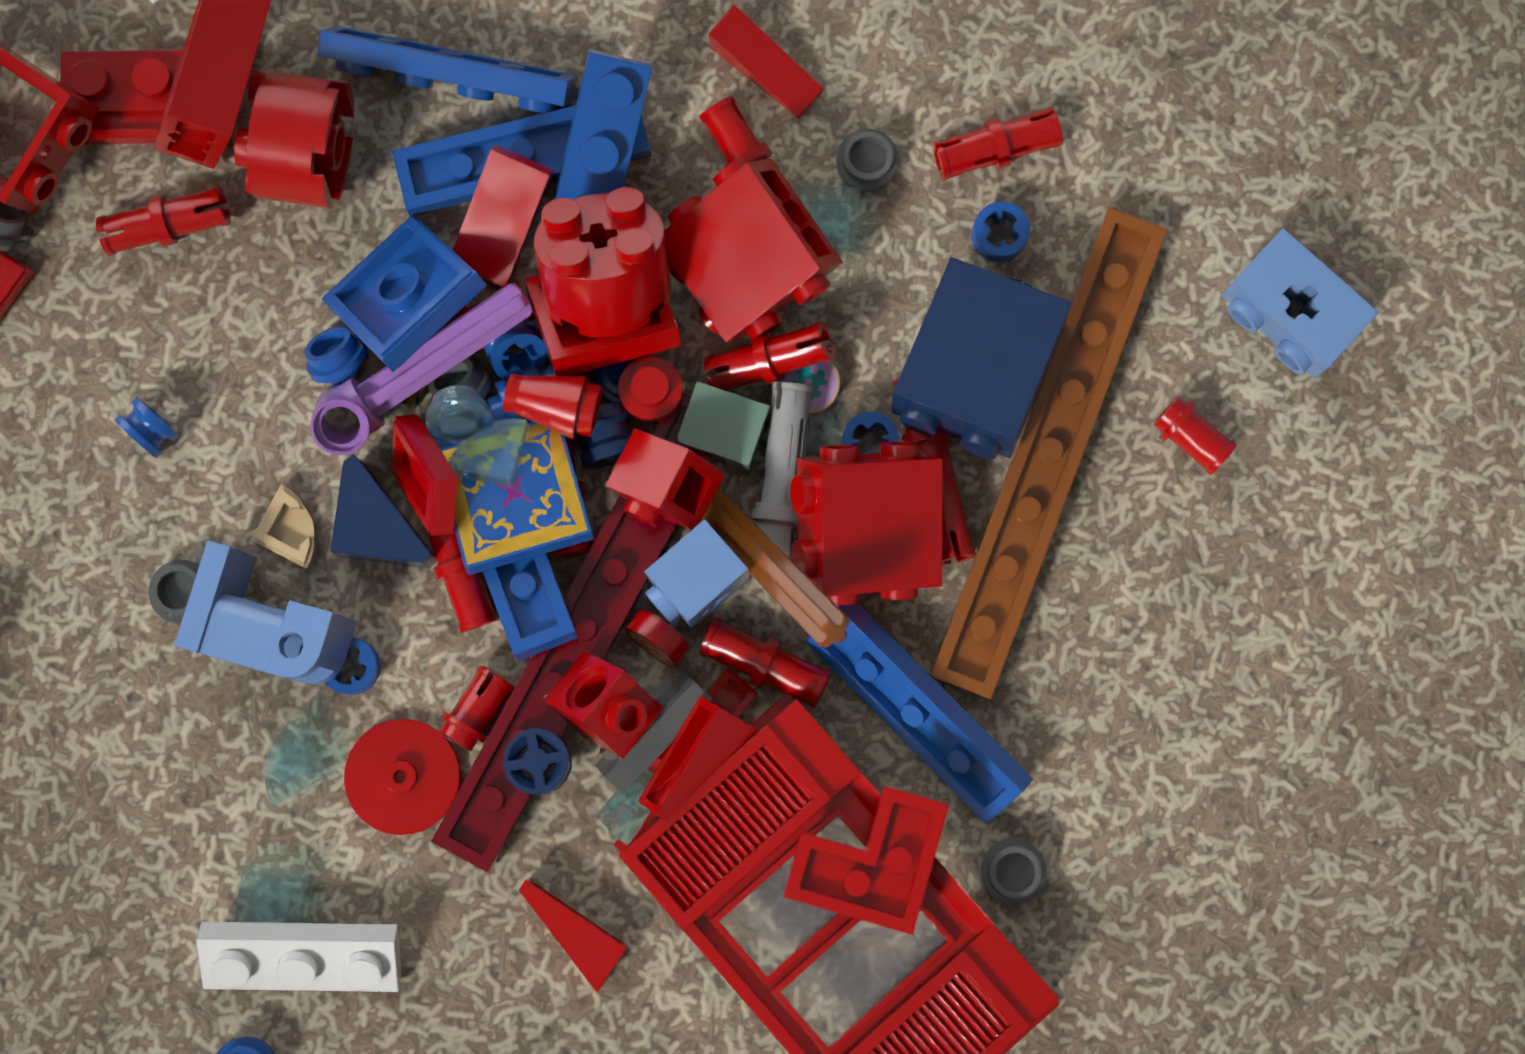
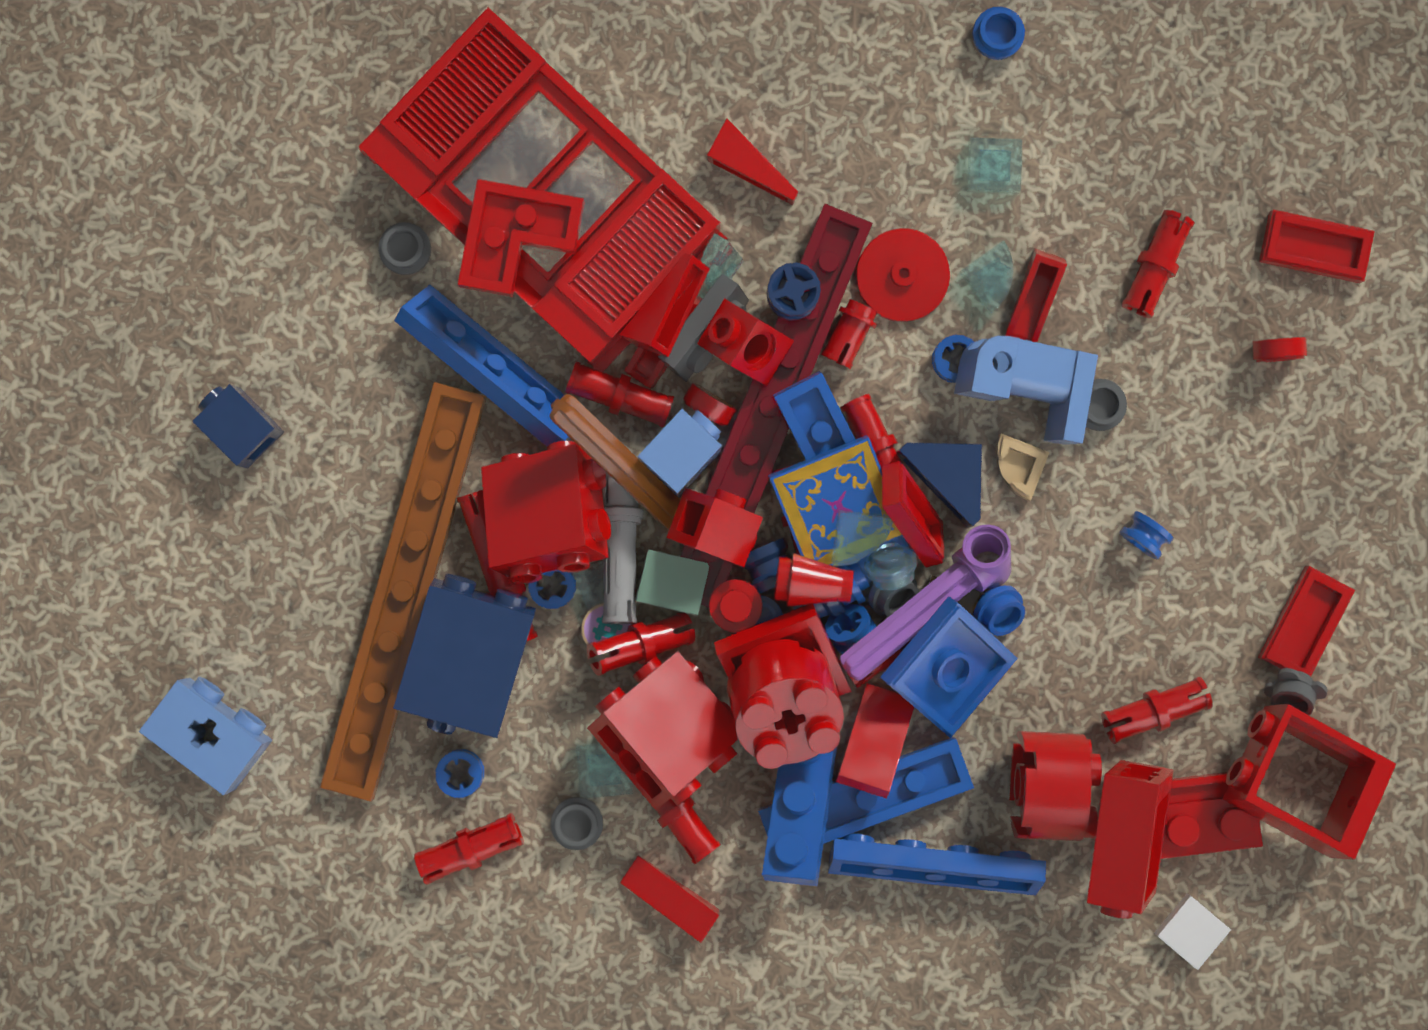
camera: 175 degrees right, 5 degrees up
(86, 757) = (1158, 263): none -> red pin
(243, 730) = (1036, 295): none -> red piece
(299, 956) = (966, 123): white plate -> none
(1194, 434) = (285, 617): red pin -> none
(1236, 671) = (236, 425): none -> dark blue brick

